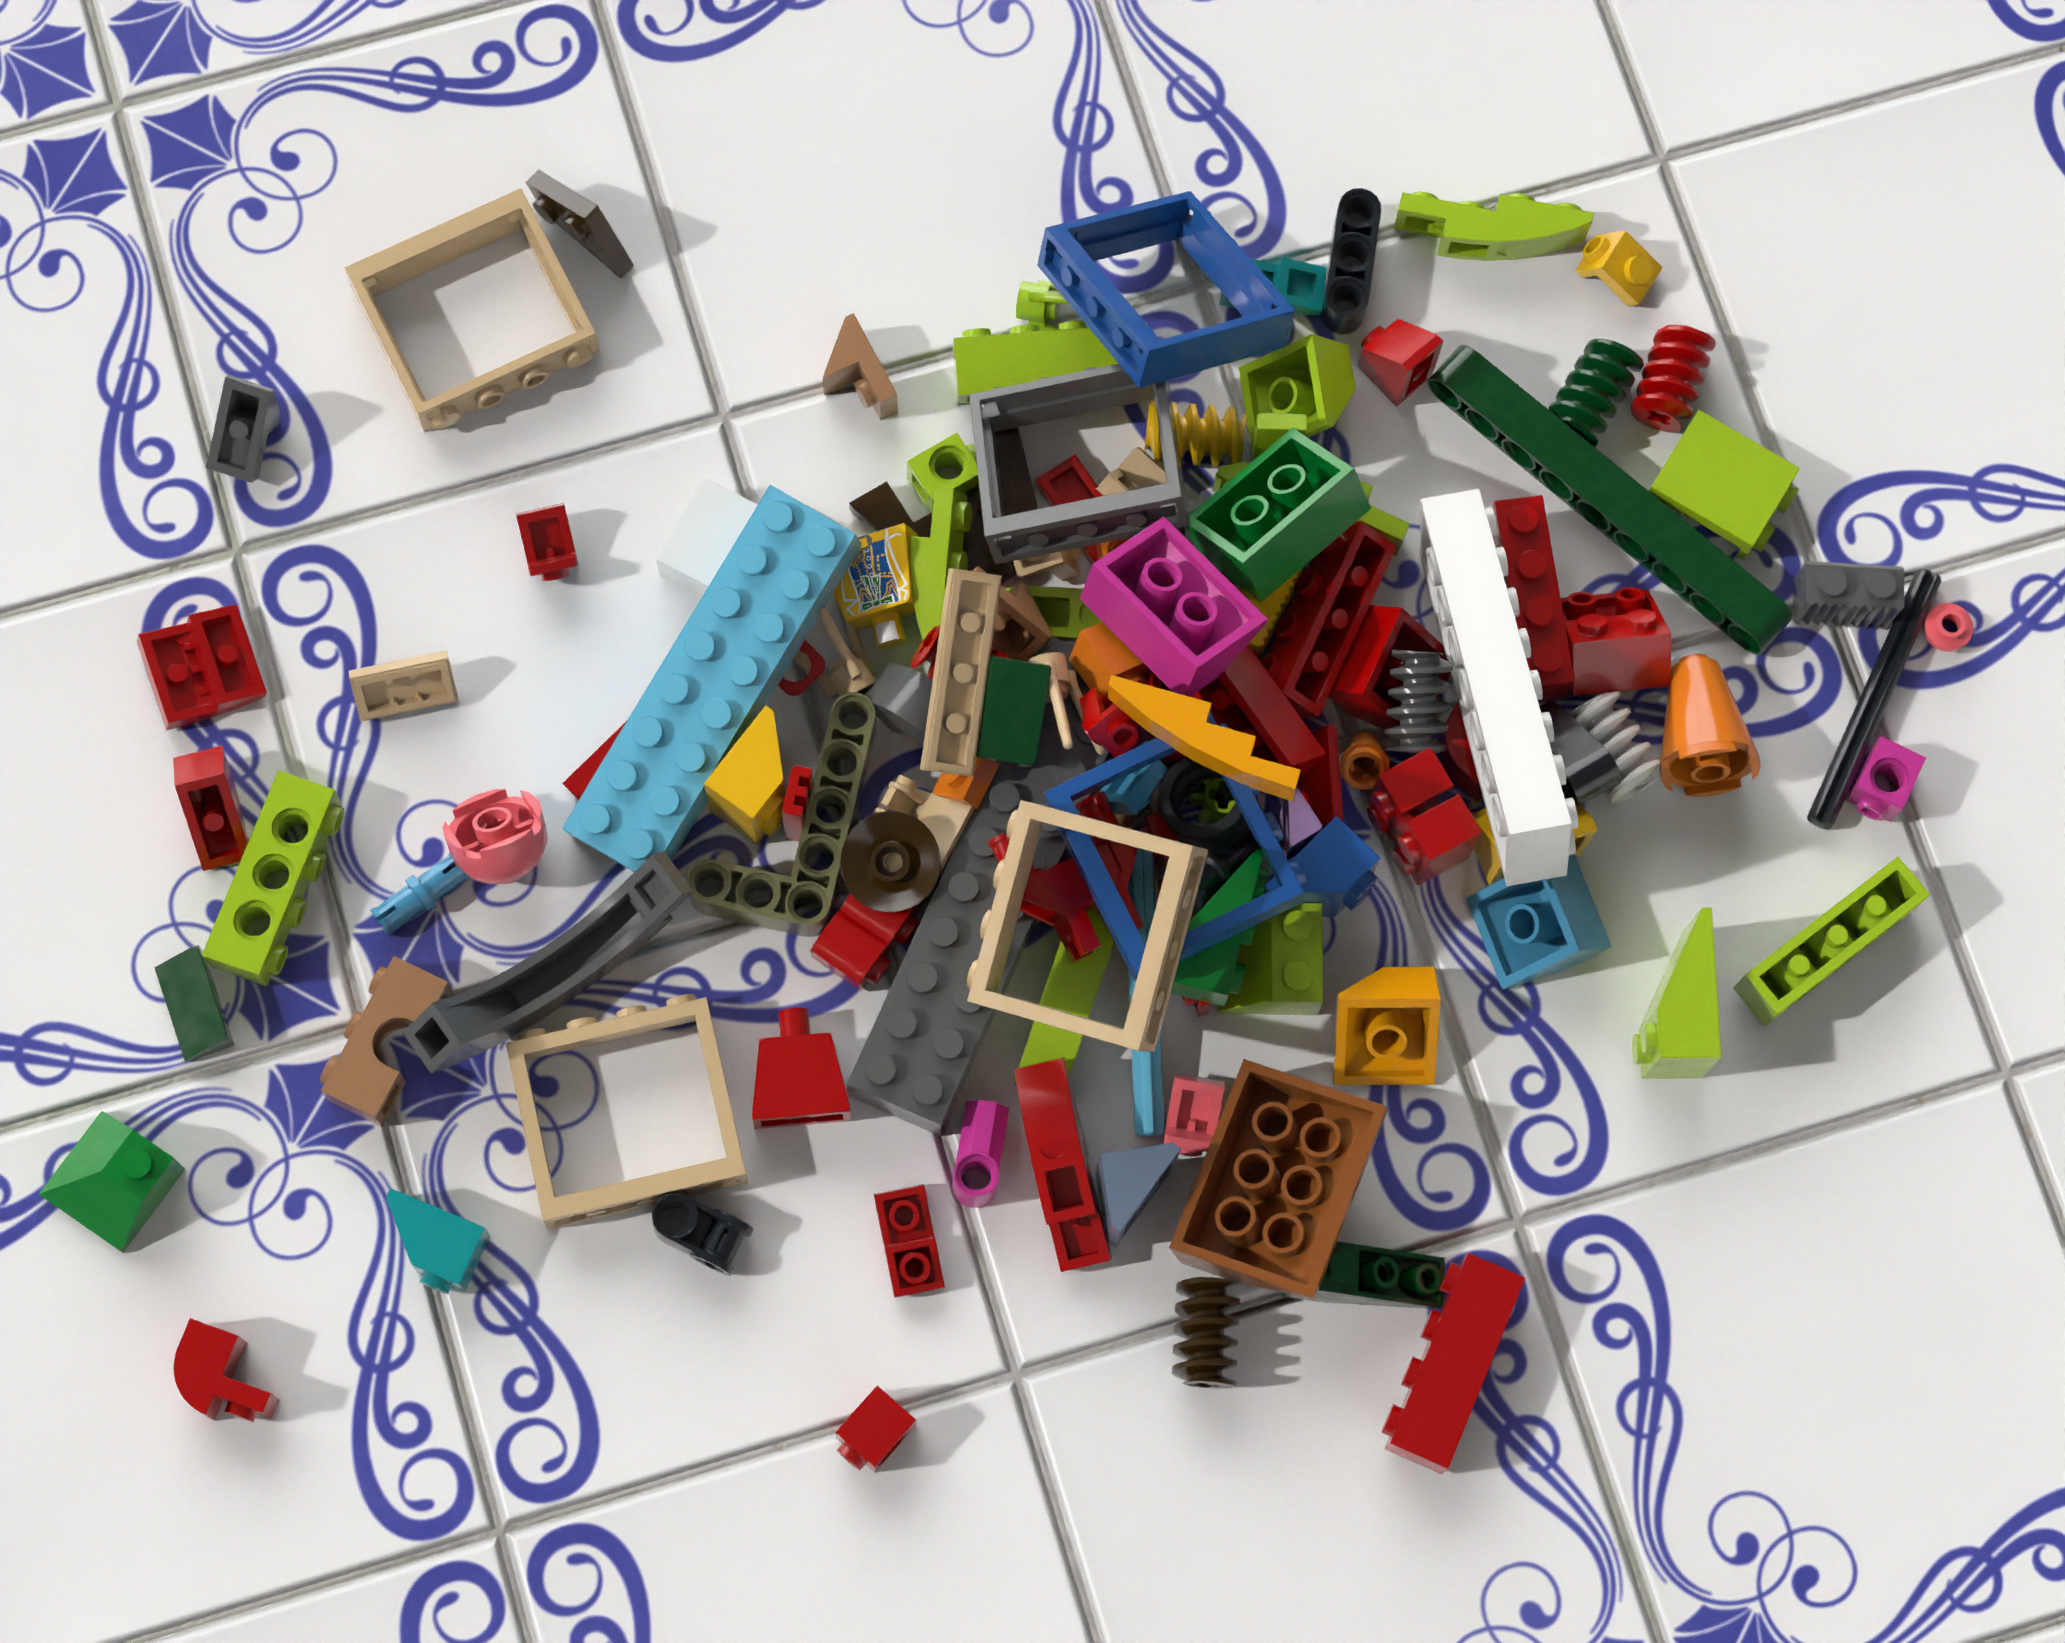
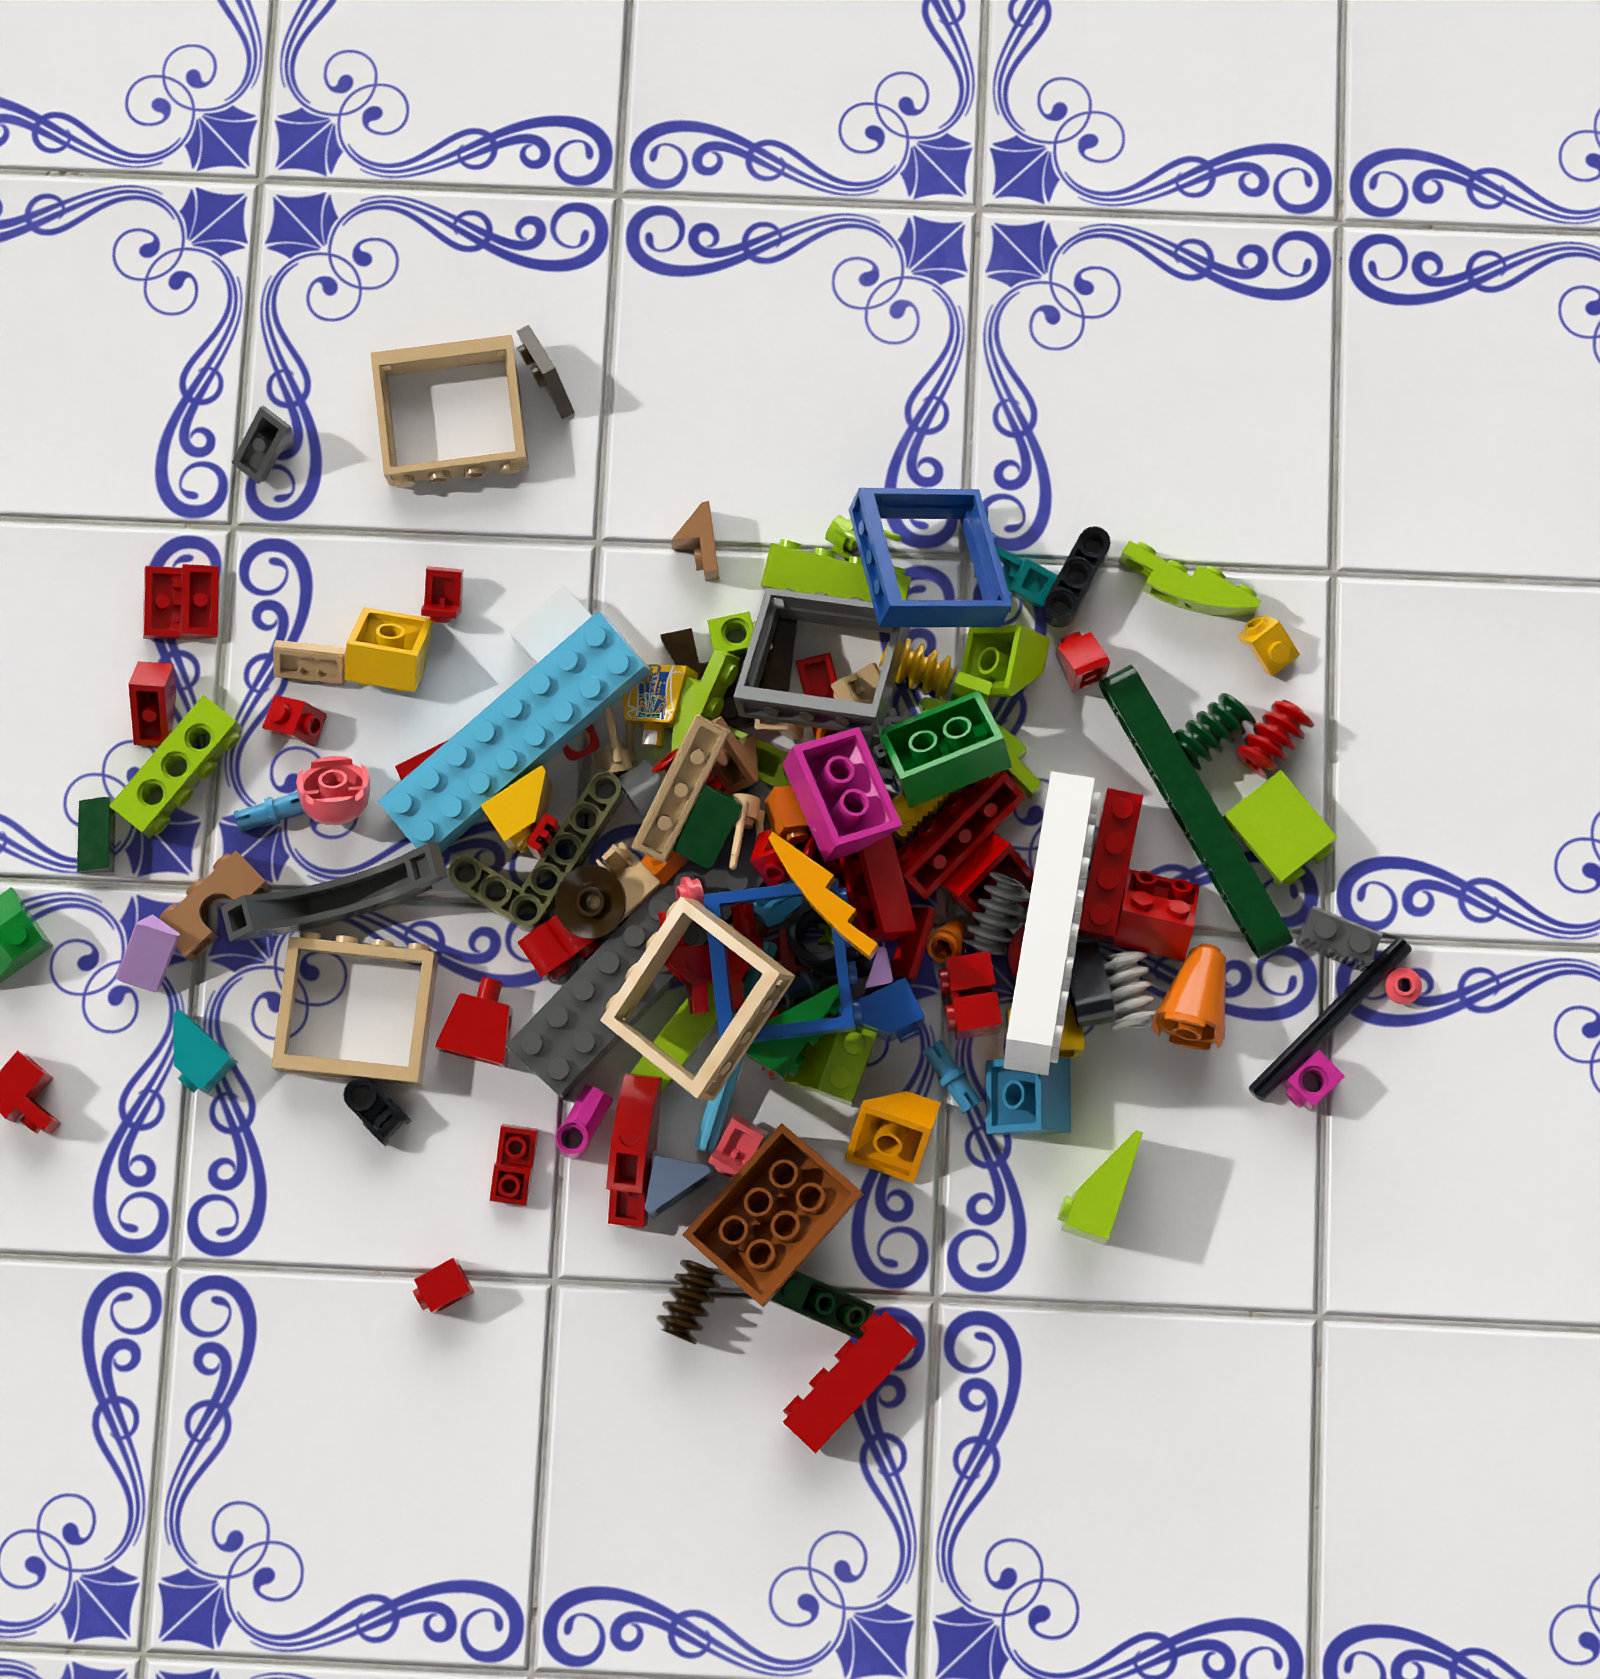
camera: 30 degrees right, 5 degrees up
(324, 1131) = (148, 954): none -> lavender slope
(408, 766) = (294, 720): none -> red bracket
(501, 636) = (388, 649): none -> yellow slope
(1010, 798) = (690, 889): none -> coral plate
(1432, 931) = (952, 1076): none -> dark azure pin
(1831, 941) = (1227, 1182): lime brick -> none

